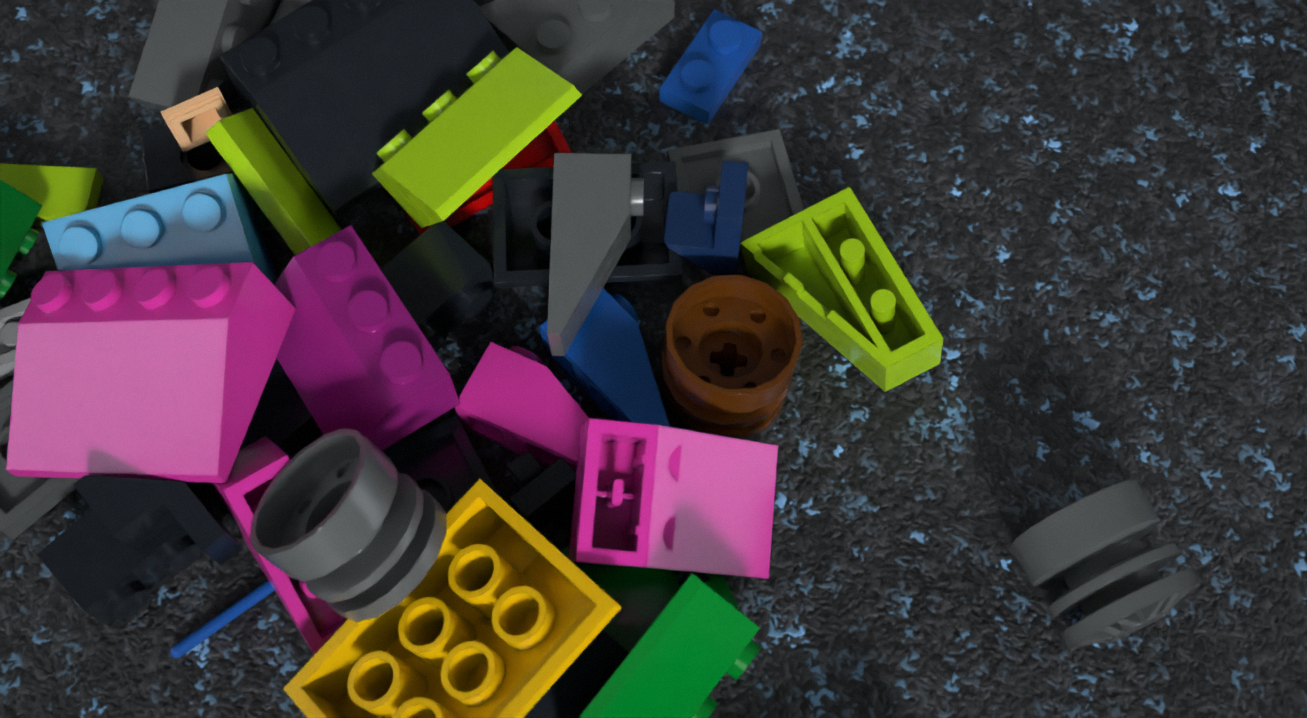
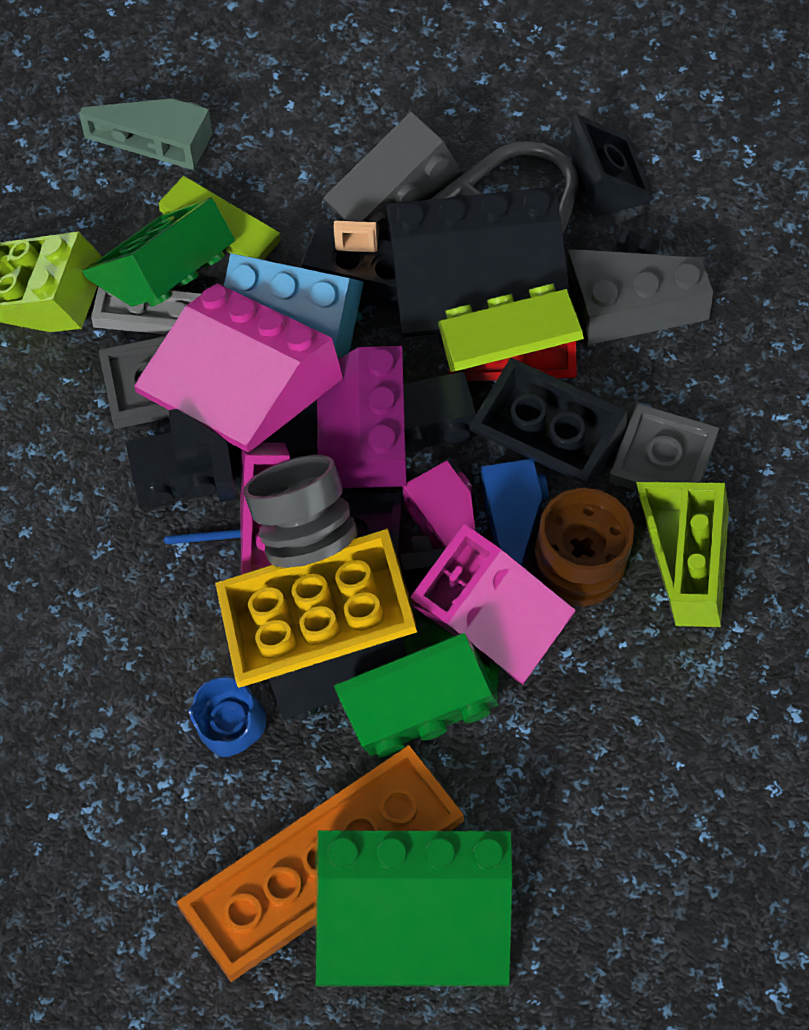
camera: 35 degrees right, 5 degrees down
(272, 180) = (377, 296): lime tile -> none
(588, 235) = (538, 426): dark grey slope -> none
(709, 224) = (622, 460): dark blue slope -> none
(710, 66) = (708, 365): blue plate -> none
(1106, 570) = (724, 784): dark grey wheel -> none

